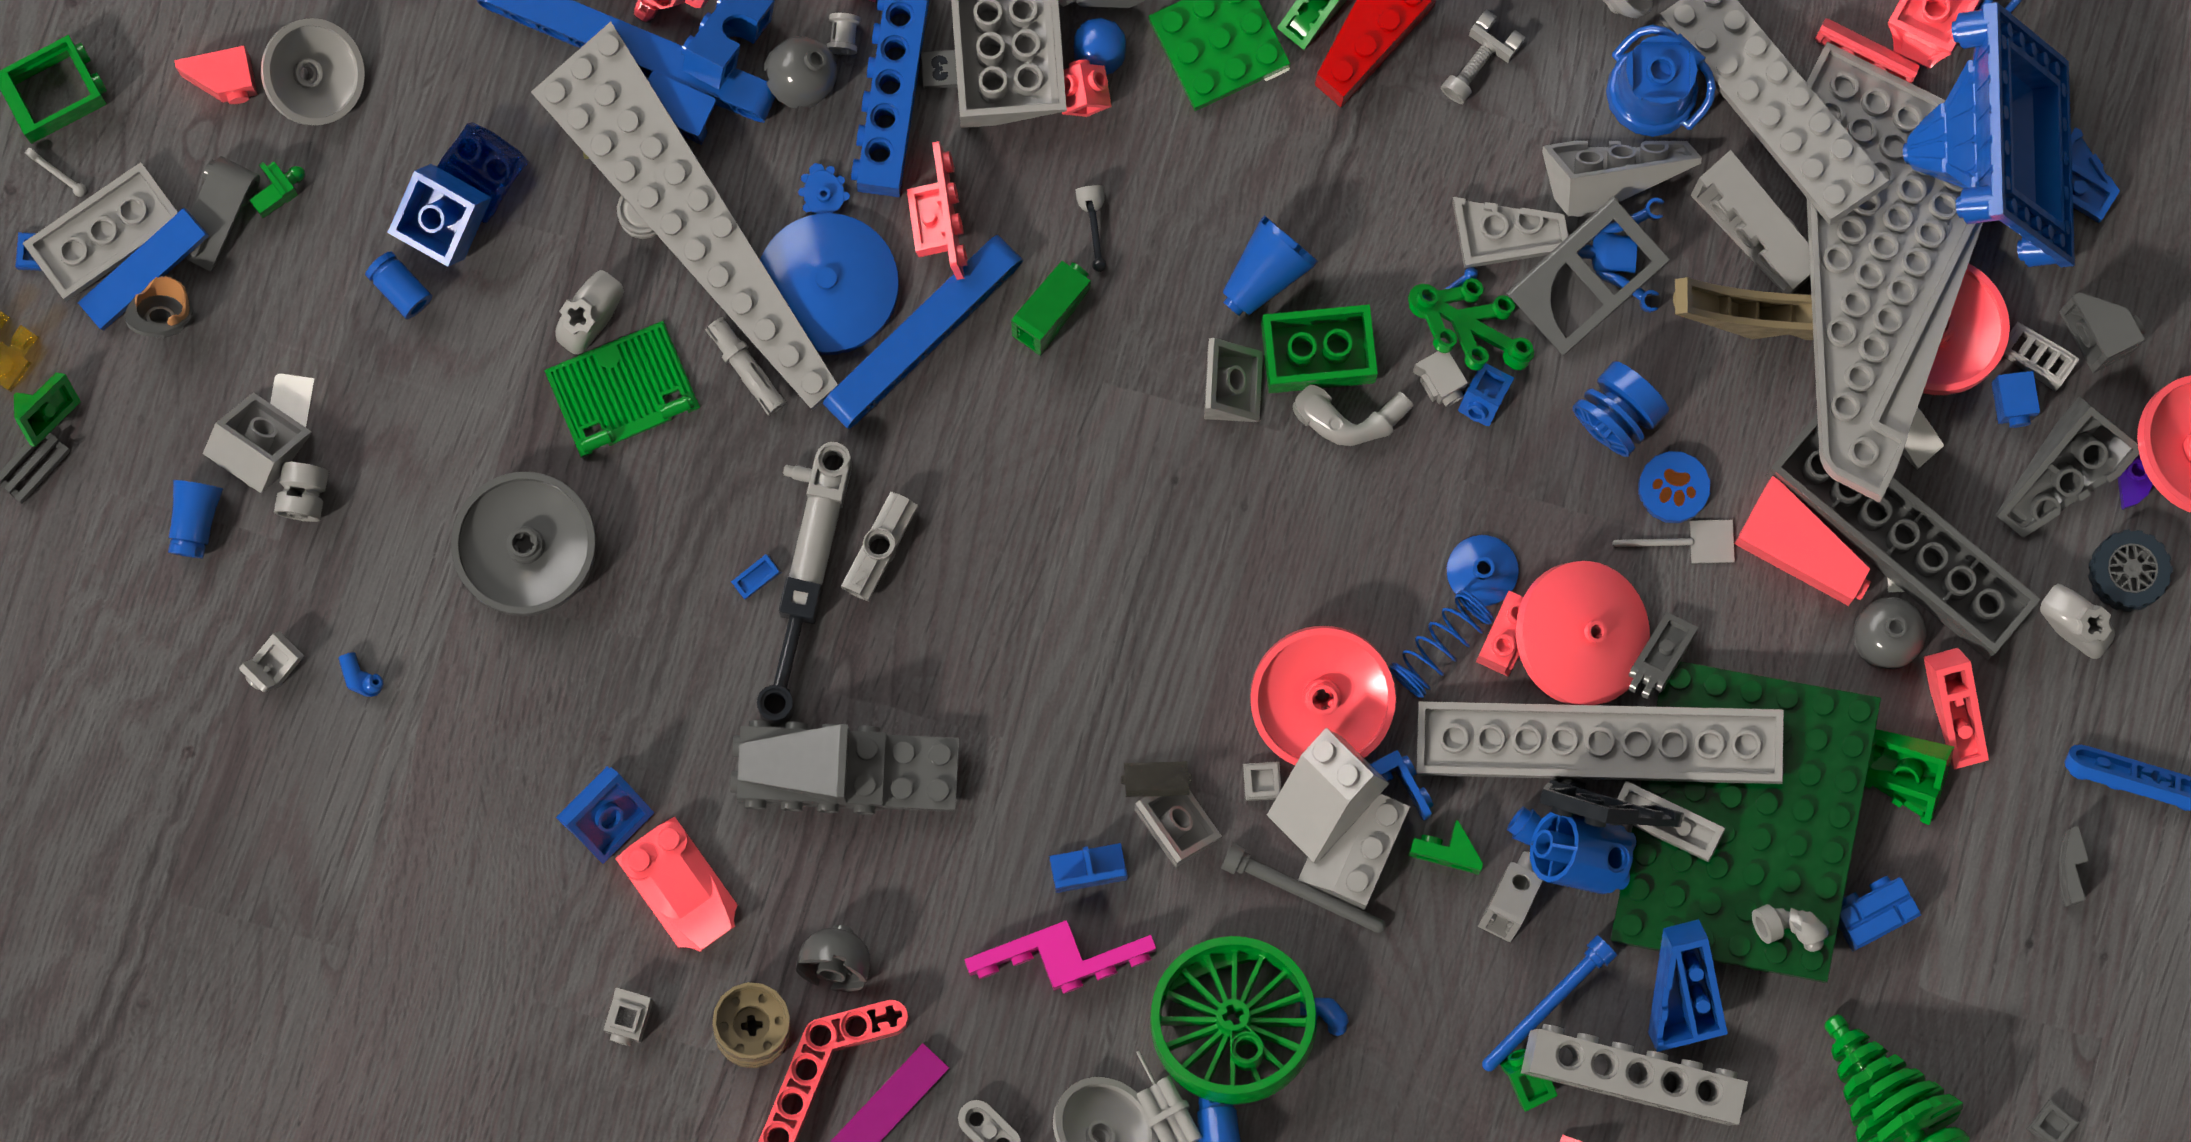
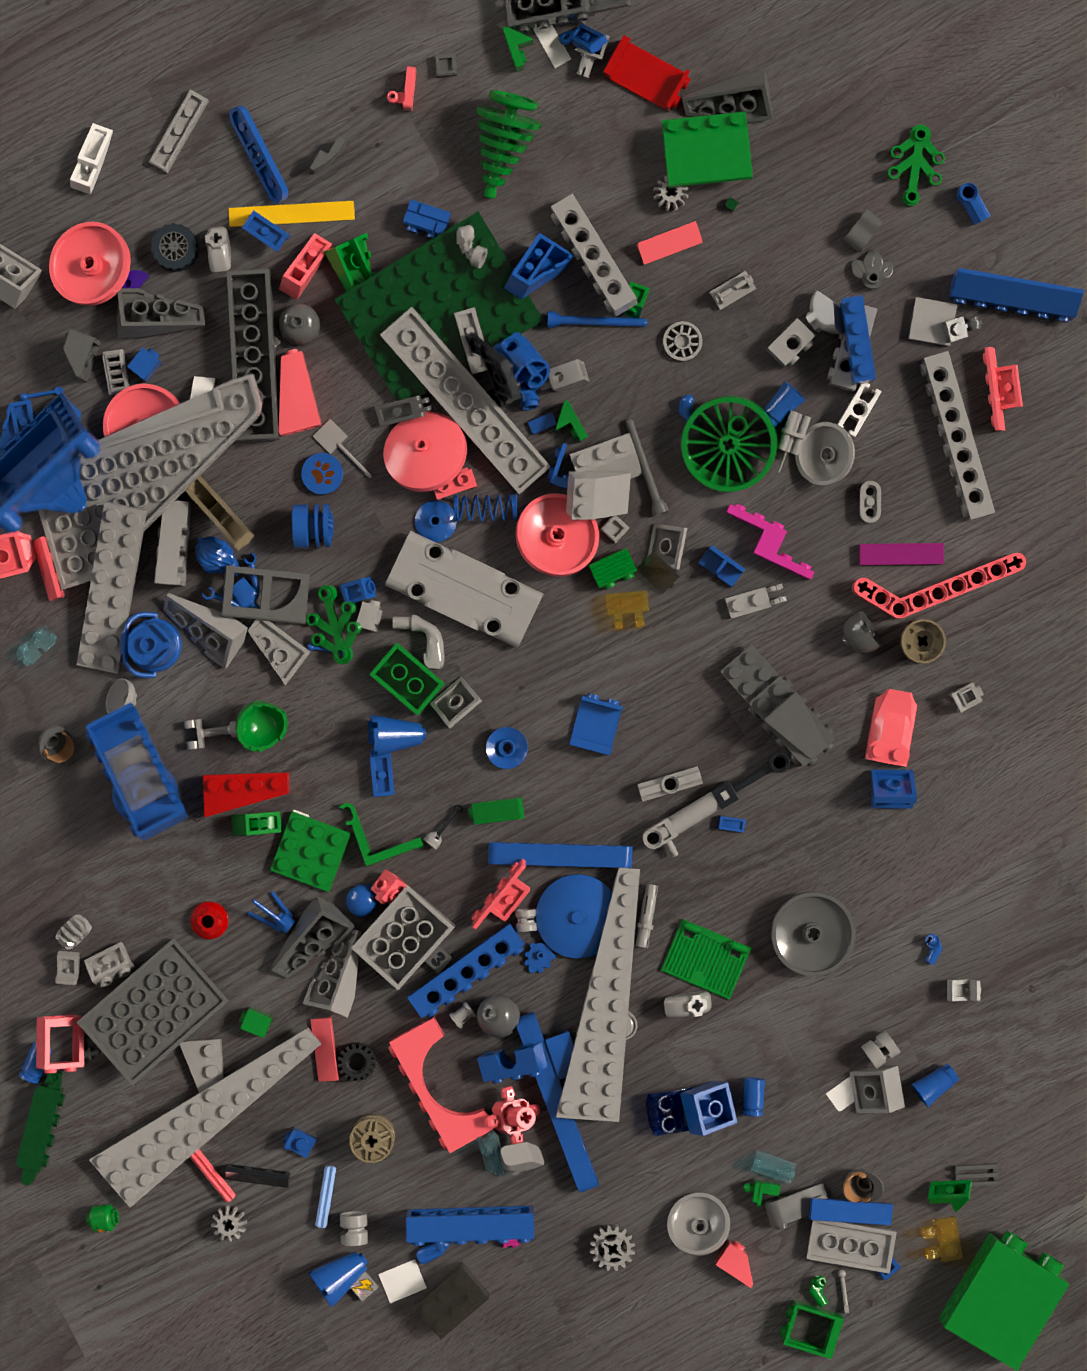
camera: 135 degrees left, 10 degrees up
(91, 140) = (816, 1290): none -> green arm
(289, 230) = (773, 1167): none -> clear light blue hinge
(884, 215) = (525, 920): none -> light grey wheel
(1006, 865) = (752, 601): none -> light grey hinge
(1040, 526) = (596, 724): none -> blue panel
(1112, 373) = (504, 759): none -> blue dish
(1153, 707) = (627, 603): none -> clear yellow plate
(1163, 109) = (365, 848): none -> green hinge
(1214, 728) = (613, 568): none -> green brick
(1228, 210) = (382, 775): none -> blue plate
(1364, 522) = (464, 589): none -> light grey panel
(1419, 1090) = (682, 341): none -> light grey wheel
(1432, 119) = (260, 725): none -> green cylinder
(1480, 816) = (542, 423): none -> blue piece
(1698, 257) = (214, 555): none -> blue hair
(2039, 756) = (295, 213): none -> yellow sticker
(2047, 699) = (265, 231): none -> blue panel
(2055, 1036) = (407, 97): none -> coral piece
(2080, 265) = (24, 396): none -> blue hinge

